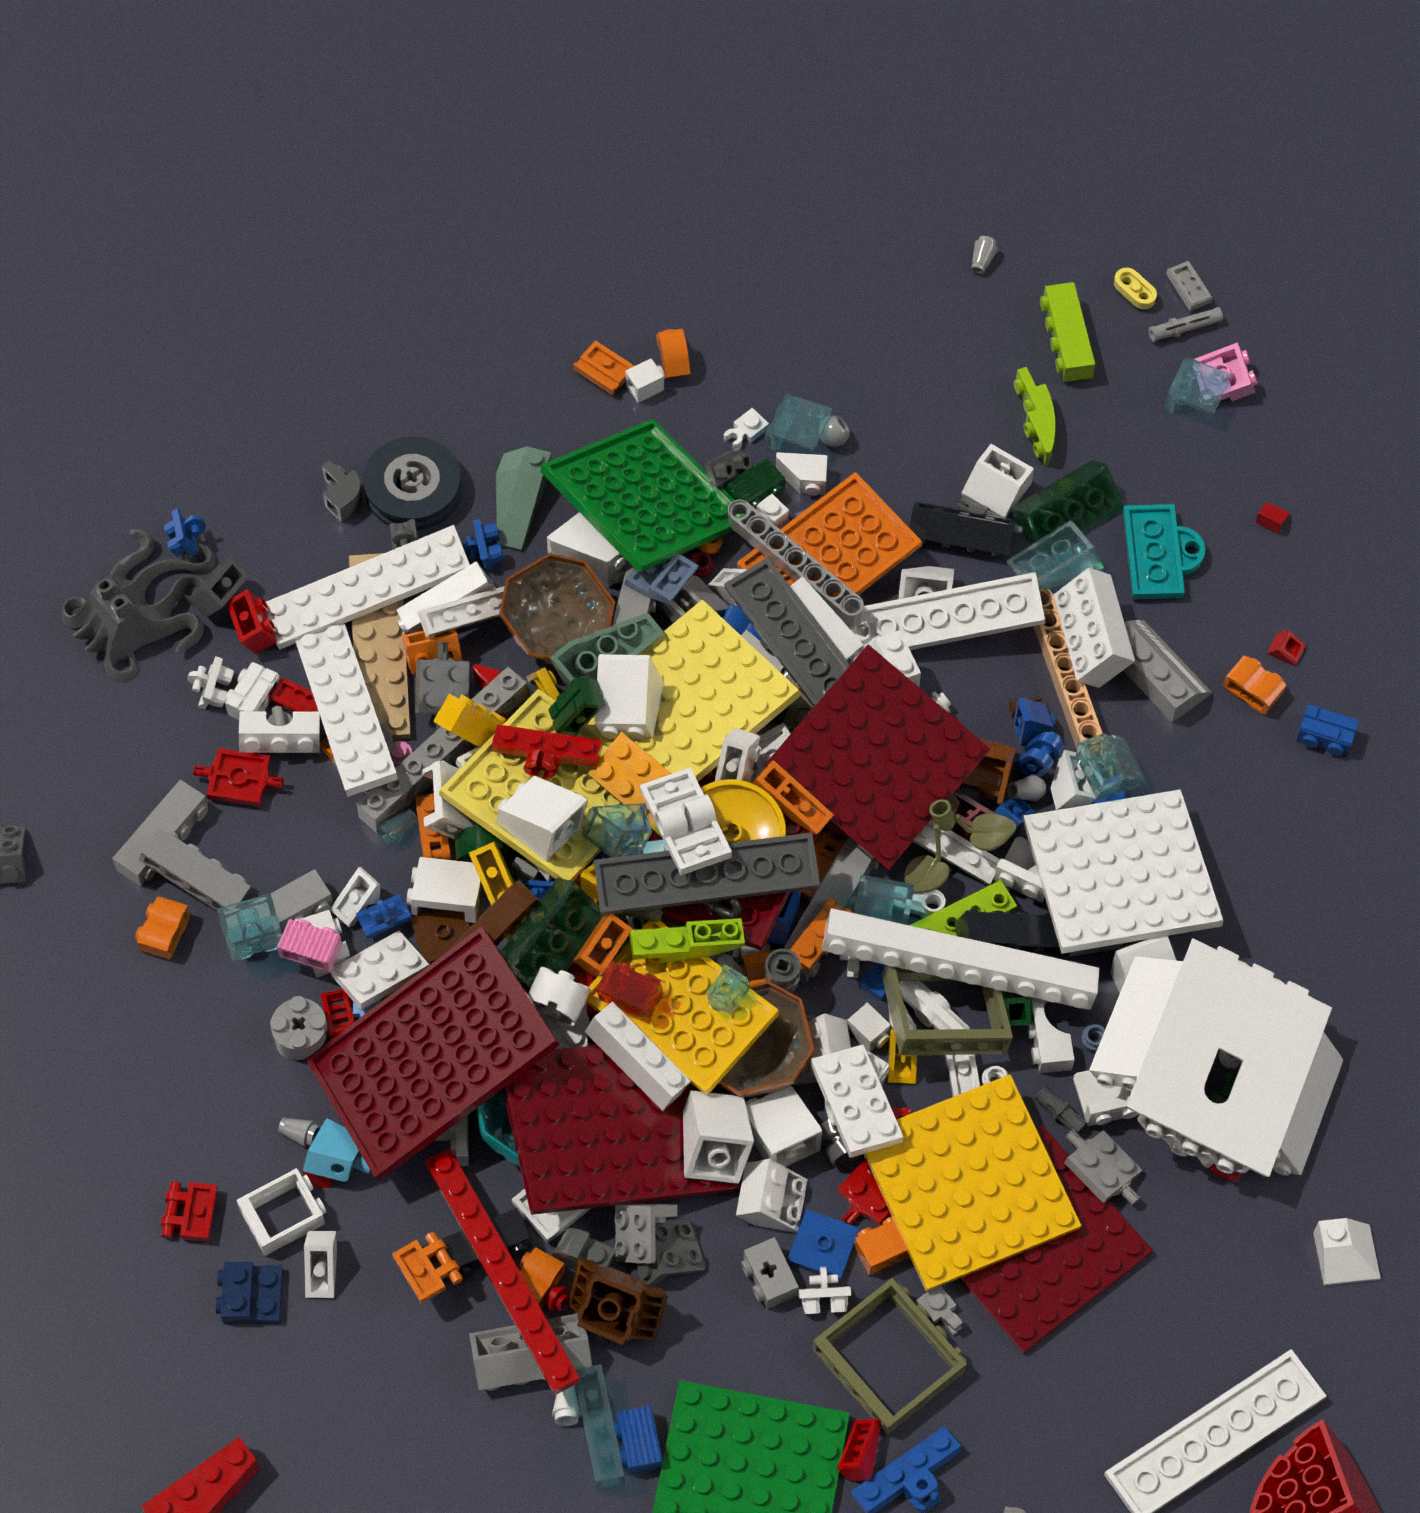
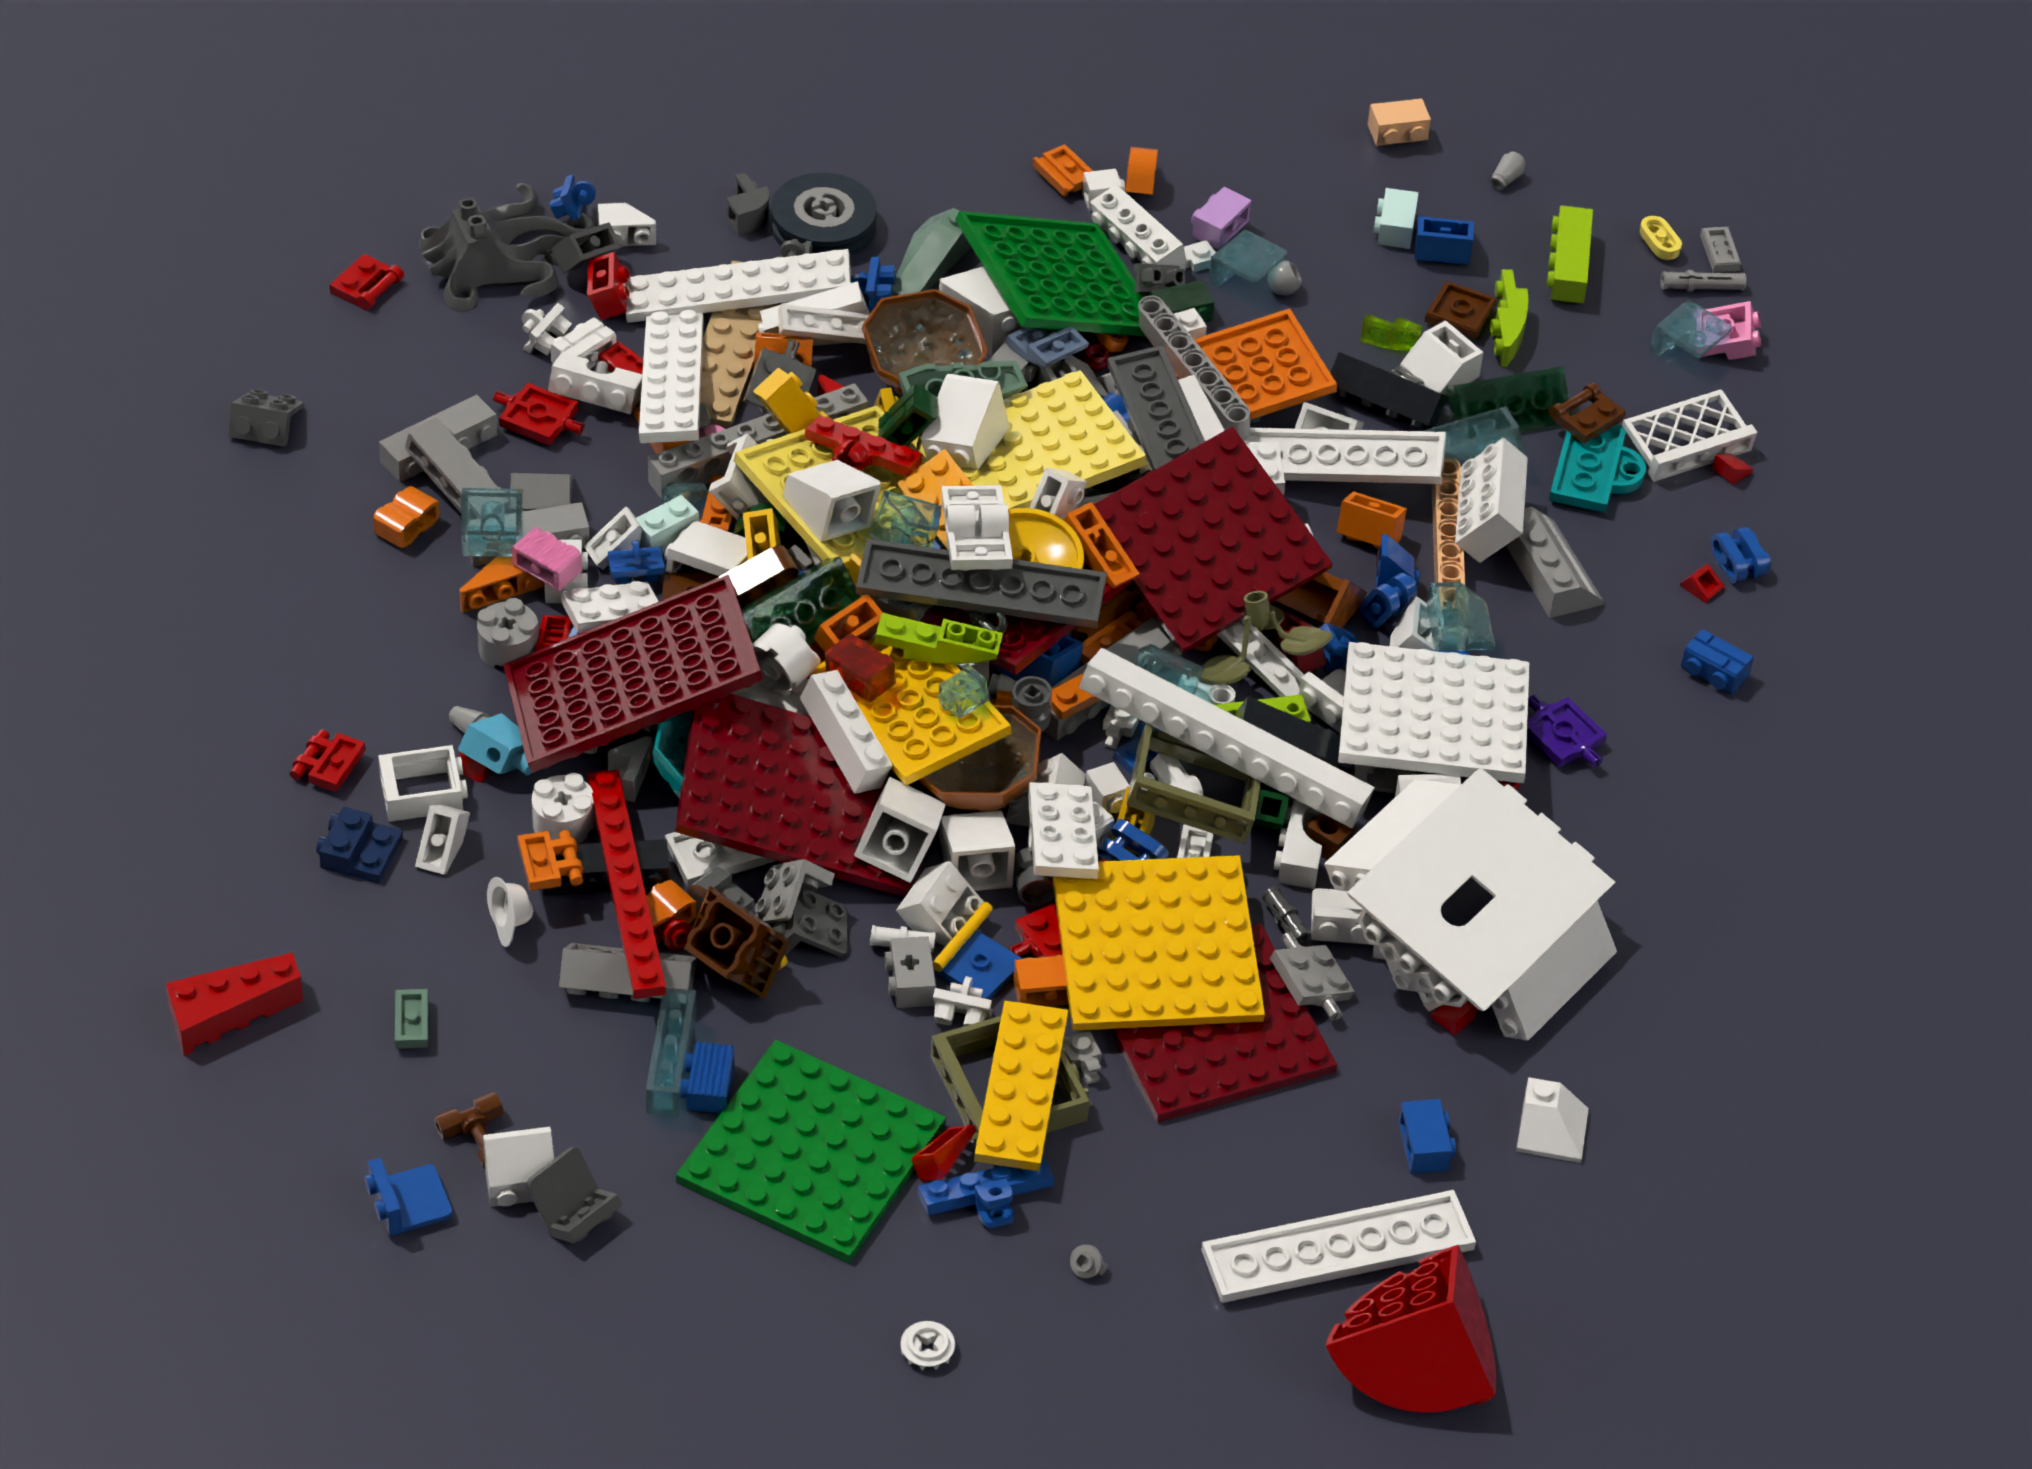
camera: 15 degrees right, 15 degrees down
(25, 673) = (361, 277): none -> red plate
(242, 546) = (628, 223): none -> white slope
(269, 974) = (496, 583): none -> orange slope
(272, 862) = (543, 489): none -> light grey slope
(362, 1462) = (411, 1018): none -> sand green plate
(396, 867) = (666, 522): none -> light aqua brick
(404, 1212) = (563, 804): none -> white brick
(407, 1321) = (508, 908): none -> white piece
(566, 1408) = (643, 1030): white cone -> none
(691, 419) = (1136, 229): none -> white brick
(747, 1239) = (881, 935): none -> white pin
(758, 382) = (1221, 217): none -> lavender brick
(800, 1223) = (962, 936): none -> yellow bar
(804, 471) = (1238, 302): white slope -> none
(875, 231) = (1399, 122): none -> light nougat brick
(897, 1096) = (1134, 838): none -> blue brick
(907, 335) = (1396, 218): none -> light aqua brick
(907, 1369) = (1021, 1086): none -> yellow plate
(953, 462) = (1396, 335): none -> clear neon green slope
(955, 347) = (1444, 240): none -> blue slope
(993, 418) = (1462, 308): none -> reddish brown plate
(995, 675) = (1368, 518): none -> orange brick
(1028, 788) = (1364, 627): light grey cone -> none
(1073, 1026) = (1329, 834): none -> reddish brown brick
(1145, 506) = (1591, 420): none -> reddish brown plate
(1227, 843) = (1564, 732): none -> dark purple plate
(1241, 512) = (1700, 450): none -> white fence
(1250, 1300) = (1426, 1136): none -> blue brick
(1254, 684) = (1652, 603): orange brick -> none
(1310, 610) = (1740, 555): none -> blue brick

